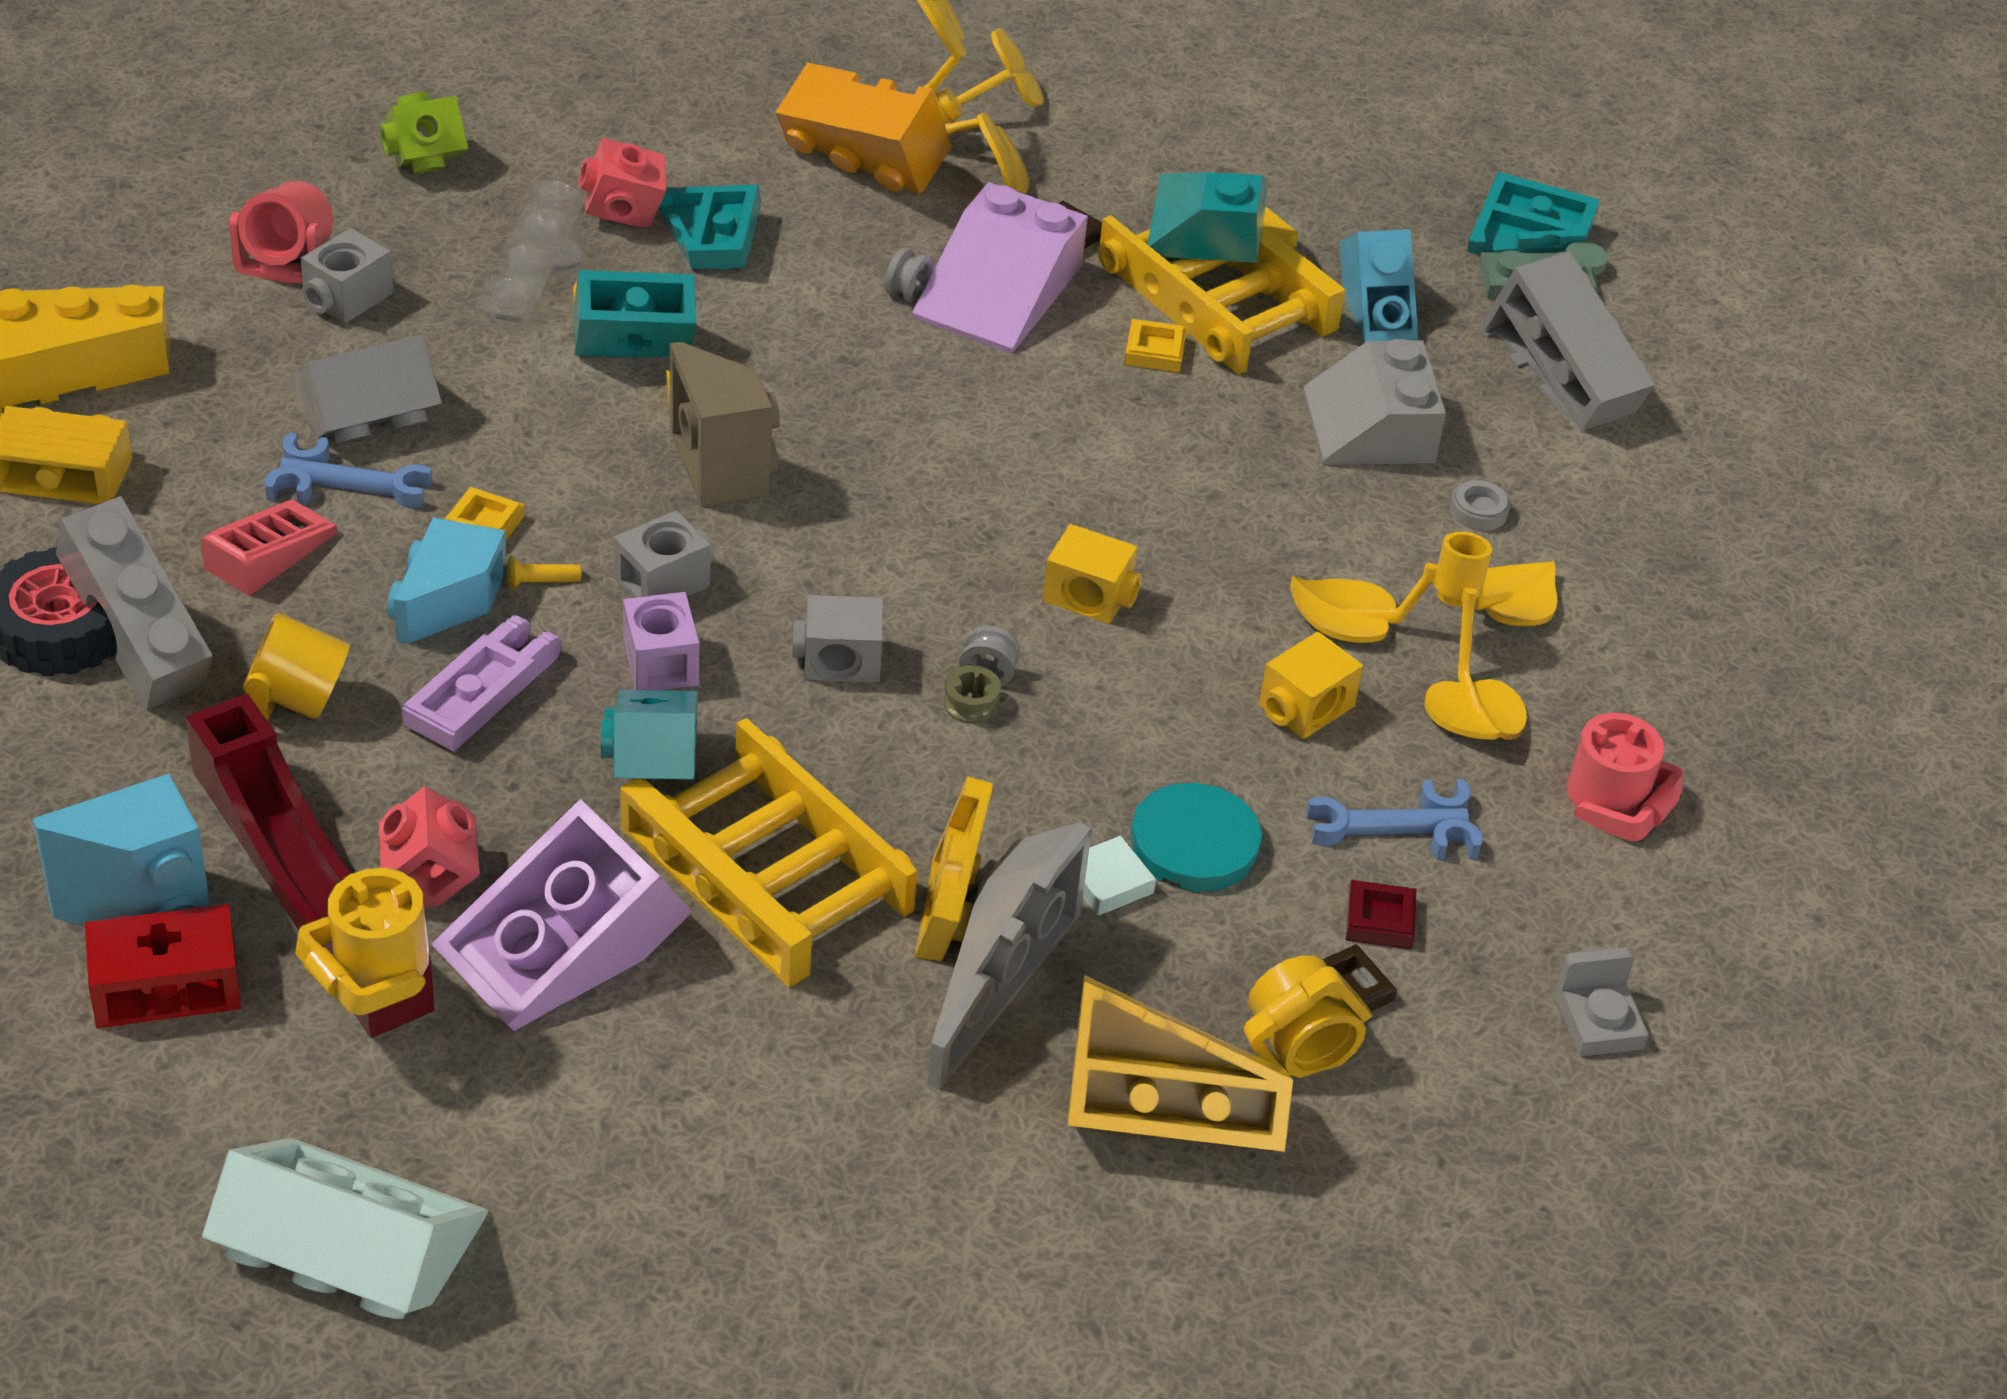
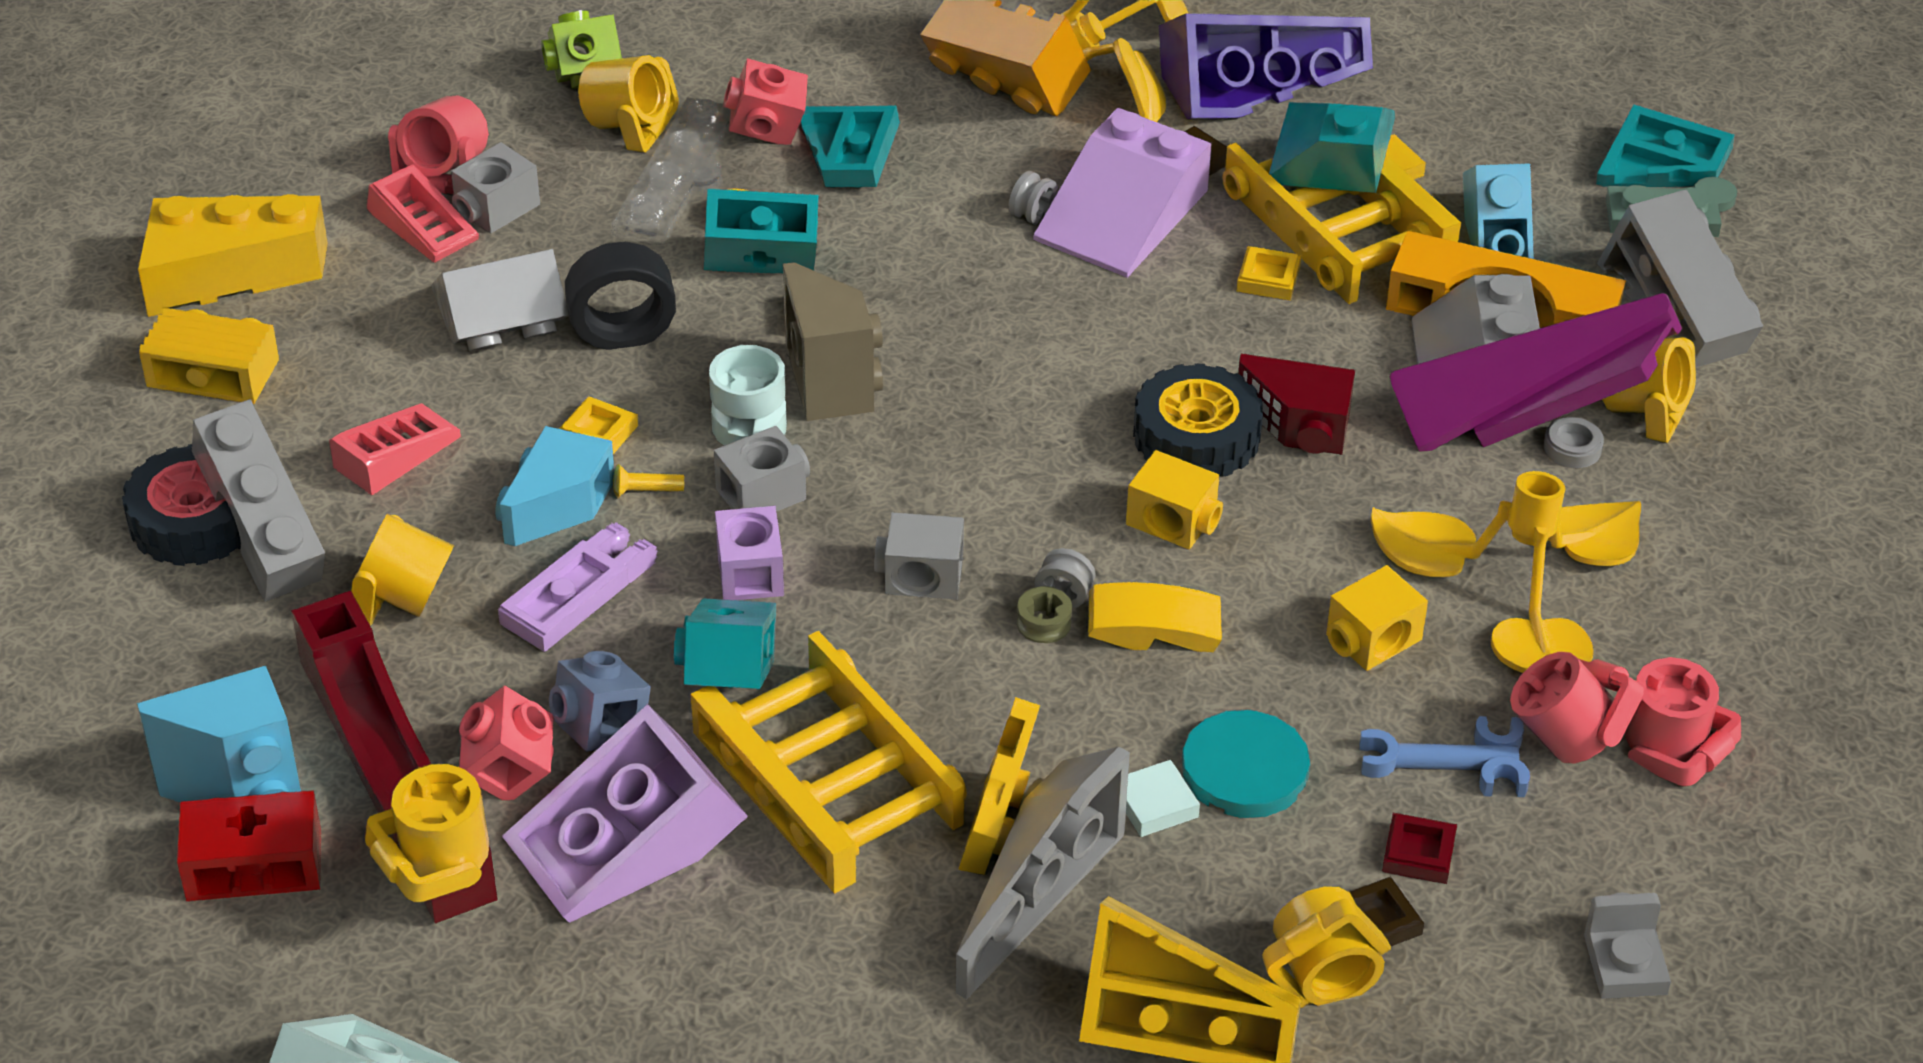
camera: 10 degrees right, 0 degrees up
(232, 292) = (408, 184): none -> coral slope
(309, 467) = (442, 372): medium blue bar -> none
(479, 178) = (629, 95): none -> yellow piece
(490, 348) = (620, 263): none -> black tyre
(520, 796) = (596, 697): none -> sand blue brick
(640, 478) = (746, 392): none -> light aqua wheel
(1072, 688) = (1140, 612): none -> yellow slope
(1096, 135) = (1235, 61): none -> dark purple wedge
(1105, 489) = (1199, 417): none -> black wheel
(1203, 471) = (1302, 401): none -> dark red slope
(1439, 438) = (1533, 374): none -> magenta wedge
(1467, 367) = (1434, 266): none -> light orange arch
(1517, 766) = (1570, 708): none -> coral piece
(1550, 439) = (1666, 391): none -> yellow piece

